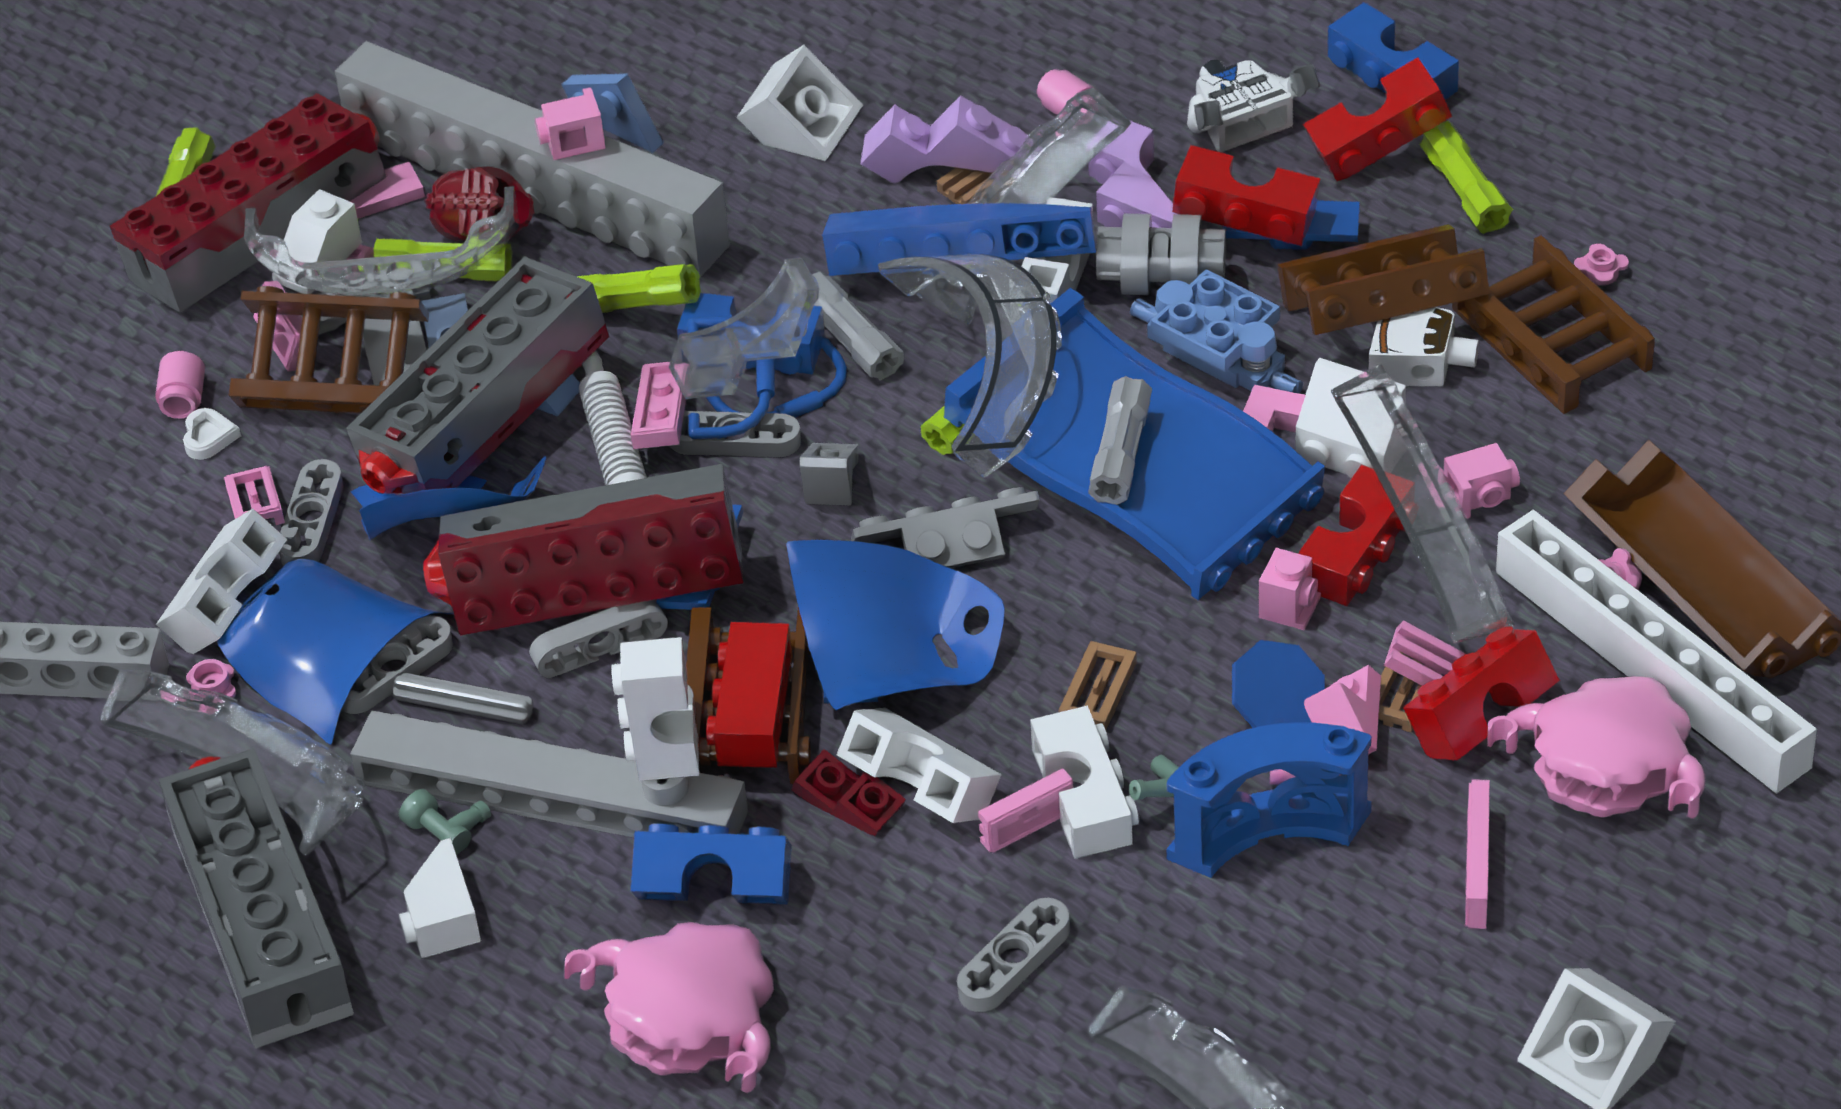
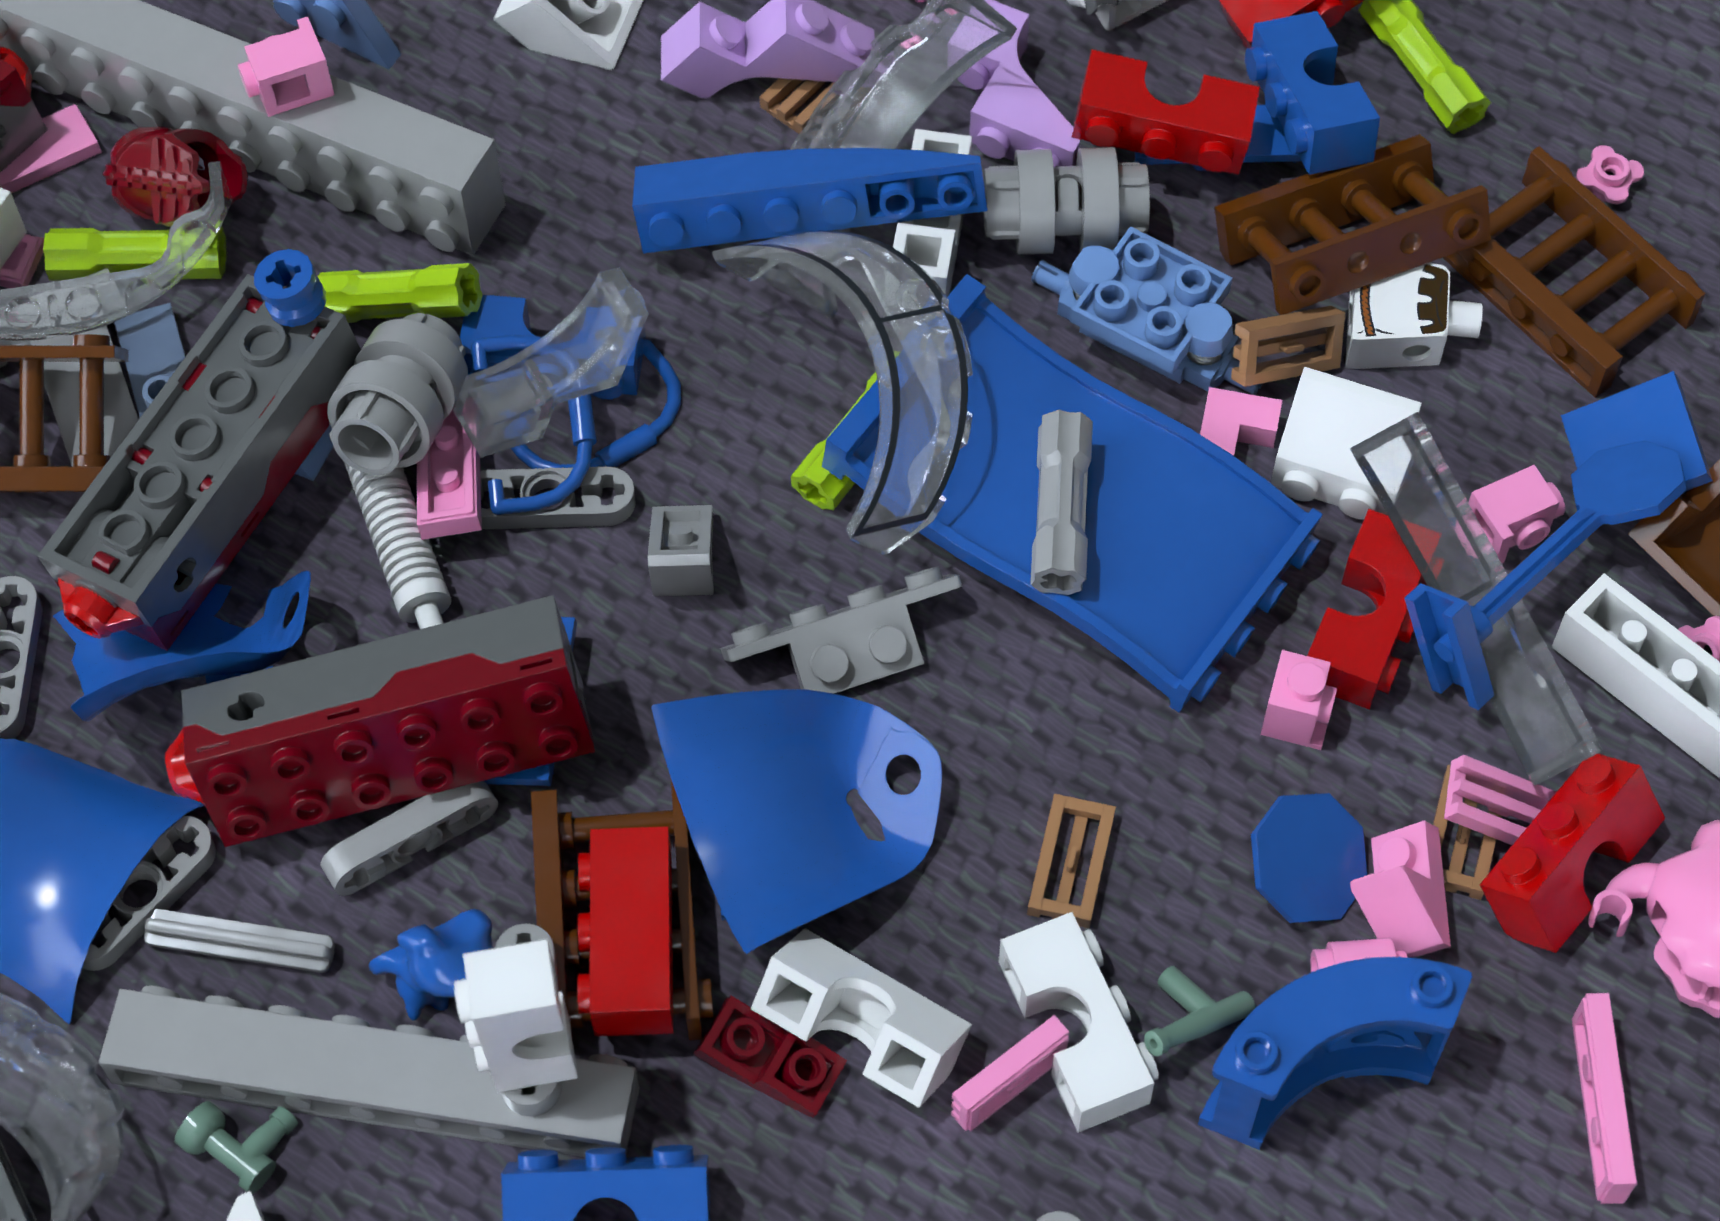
camera: 10 degrees left, 15 degrees up
(554, 260) = (304, 292): none -> blue wheel
(594, 712) = (433, 959): none -> blue animal
(626, 346) = (397, 394): none -> light grey piece
(868, 346) = (704, 351): light grey axle -> none
(1285, 357) = (1255, 373): none -> medium nougat tile
(1357, 181) = (1296, 70): none -> blue arch
(1408, 544) = (1608, 489): none -> blue piece
(1578, 435) = (1646, 412): none -> blue tile

